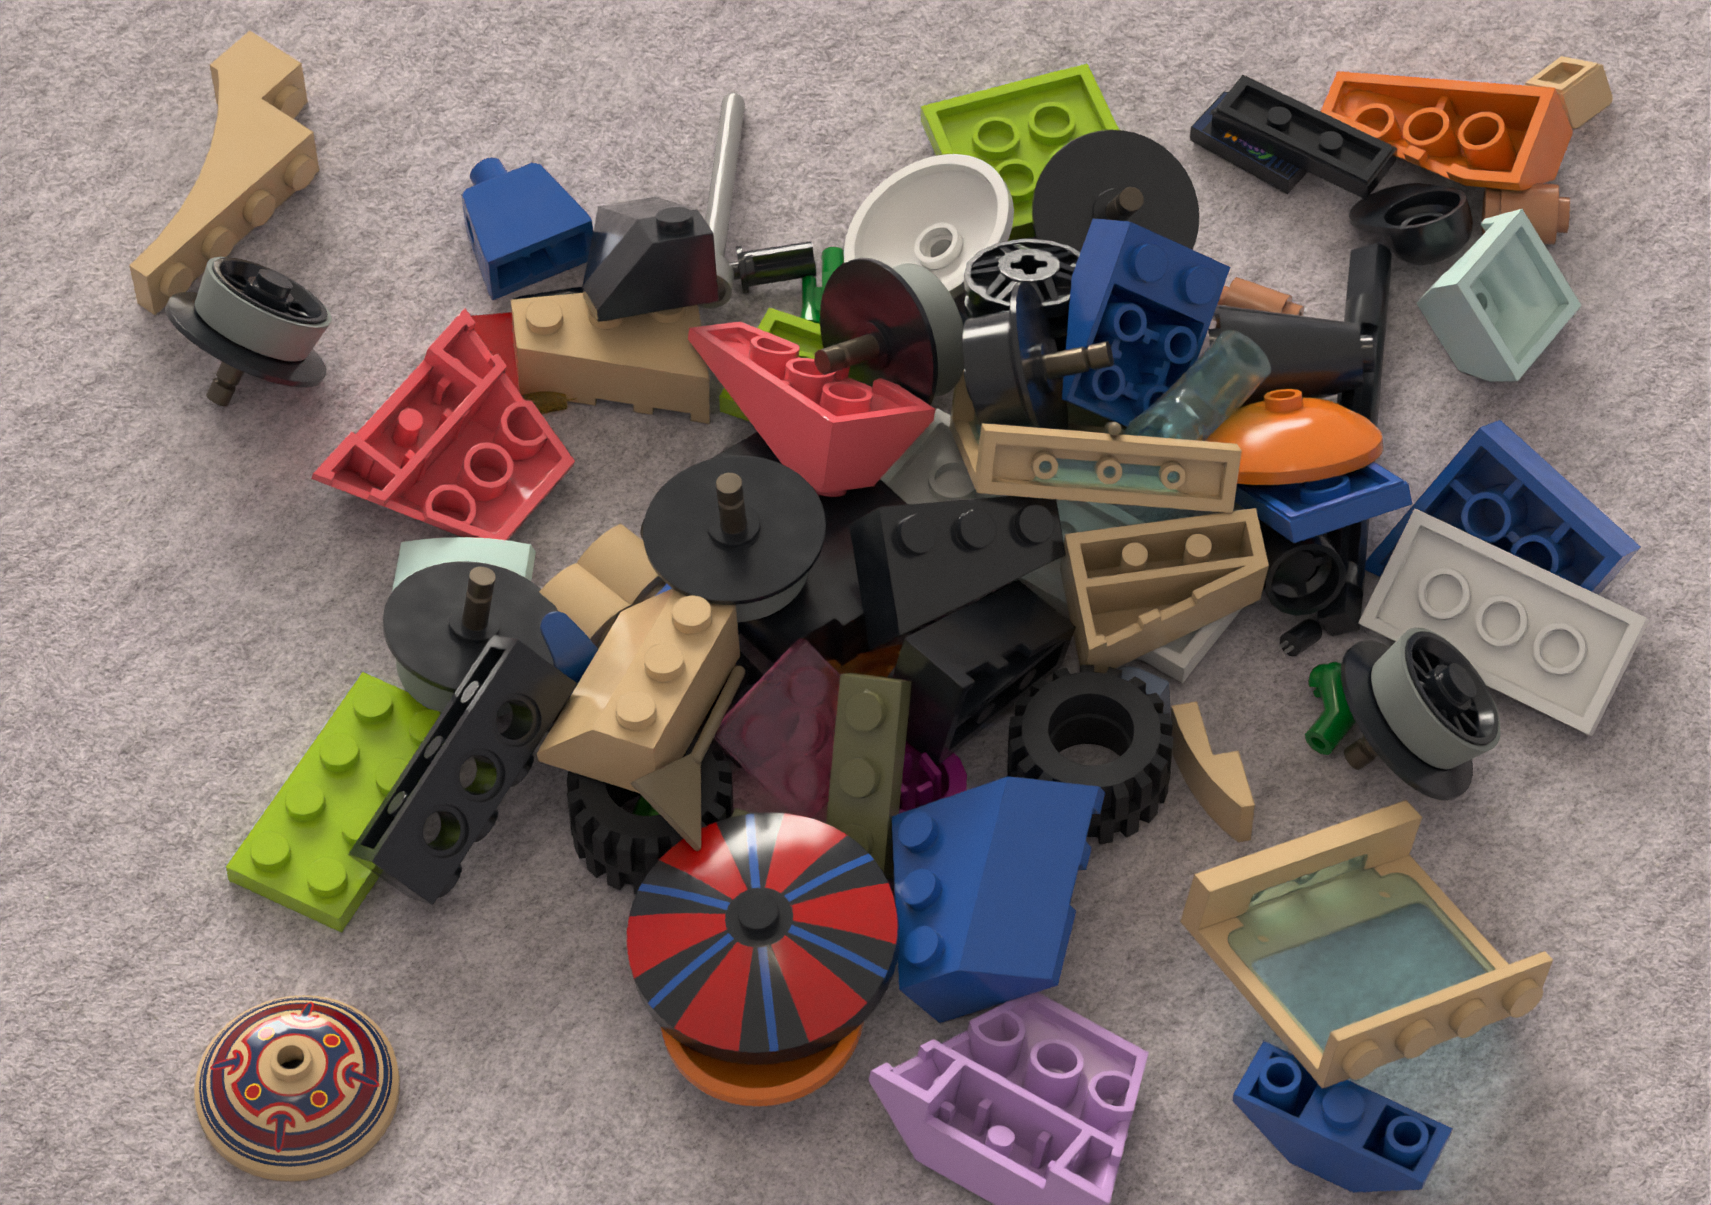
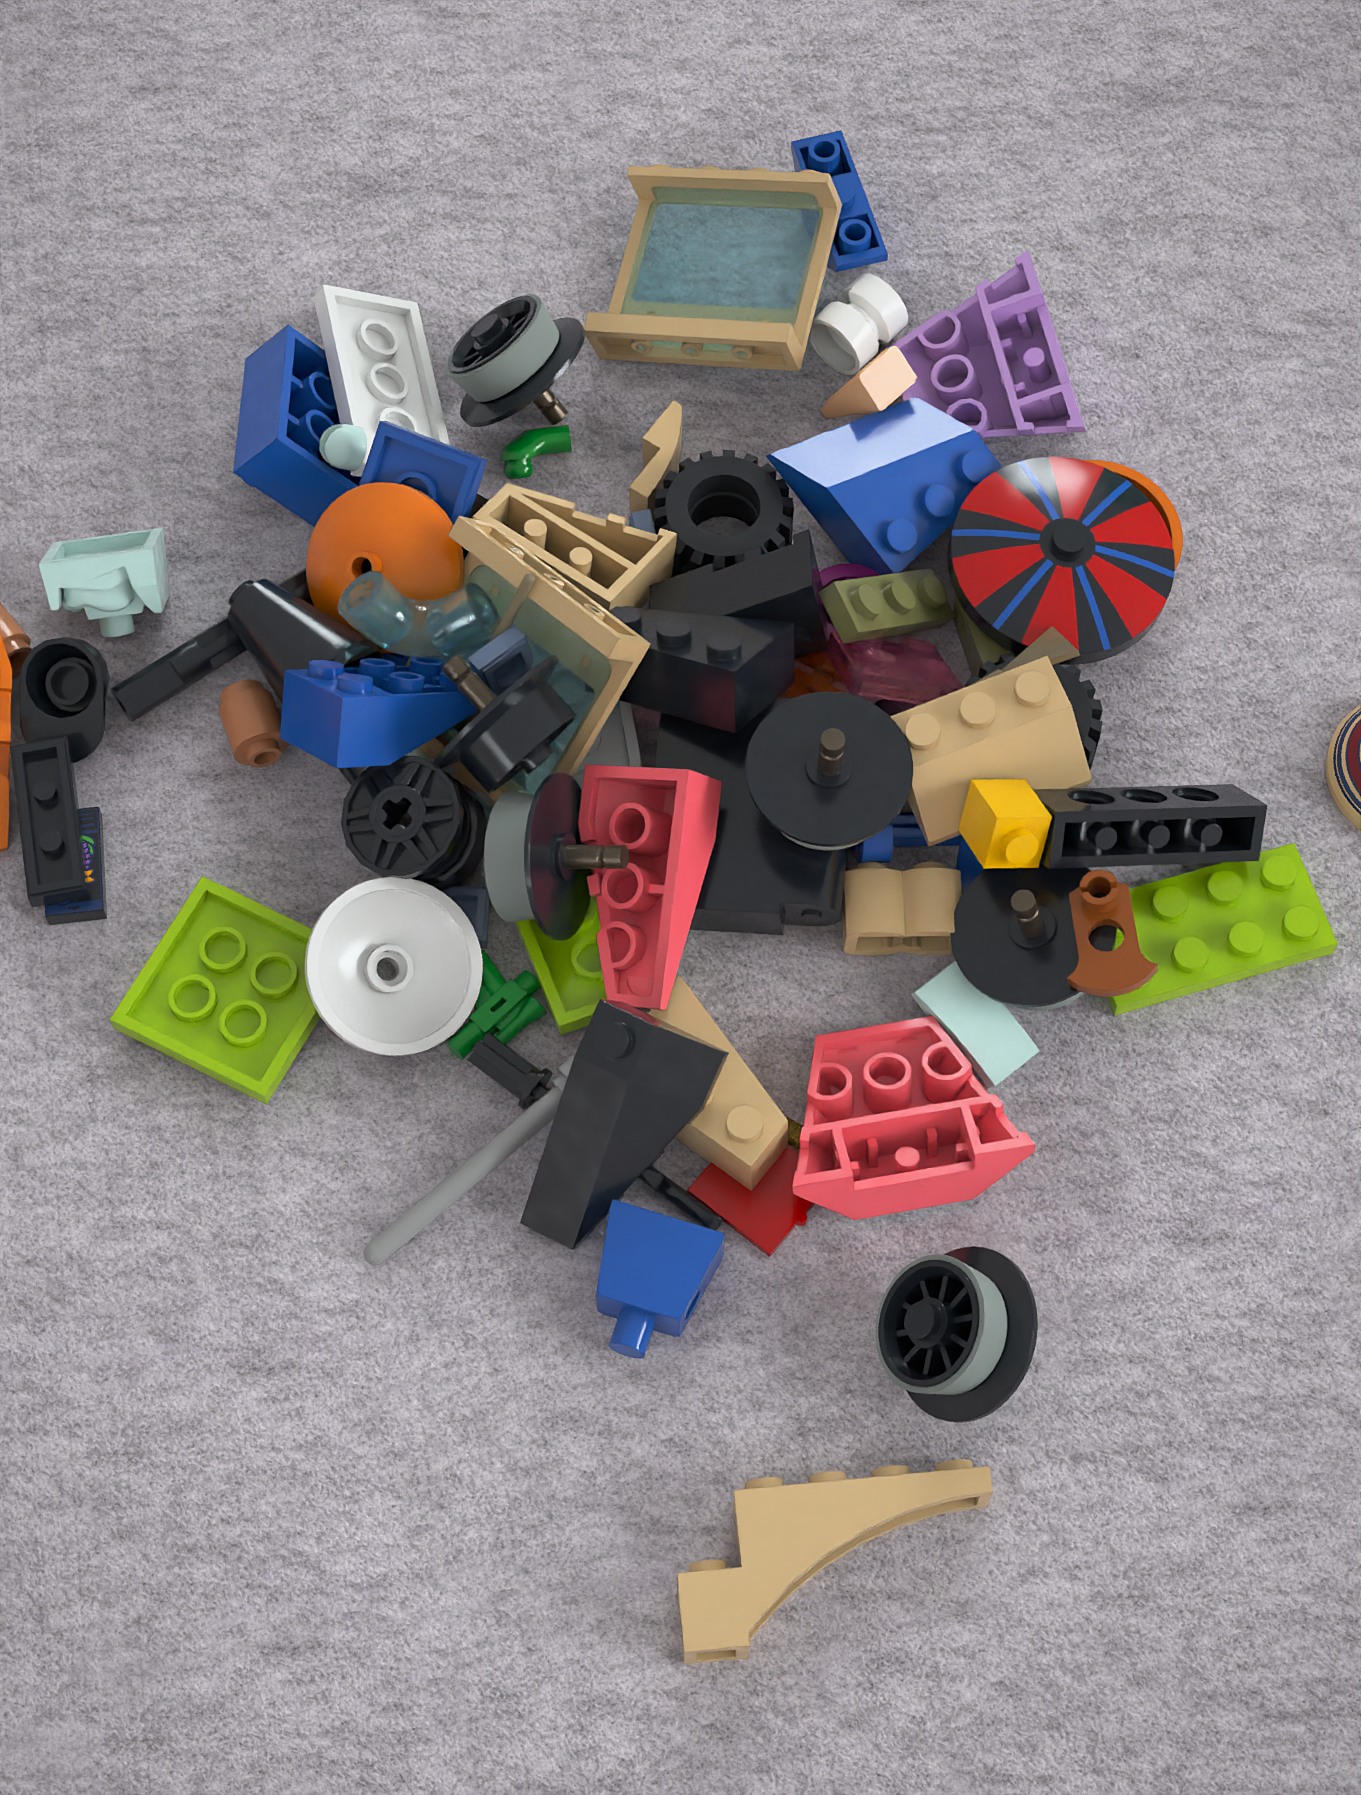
camera: 135 degrees left, 10 degrees up
(380, 610) = (1101, 971): none -> dark orange piece
(563, 631) = (1004, 823): none -> yellow brick
(1091, 408) = (503, 660): none -> sand blue tile
(1104, 960) = (872, 387): none -> light nougat slope
(1114, 179) = (265, 851): black piece -> none
(1193, 1034) = (853, 327): none -> white wheel
(1444, 499) = (343, 446): none -> light aqua hinge

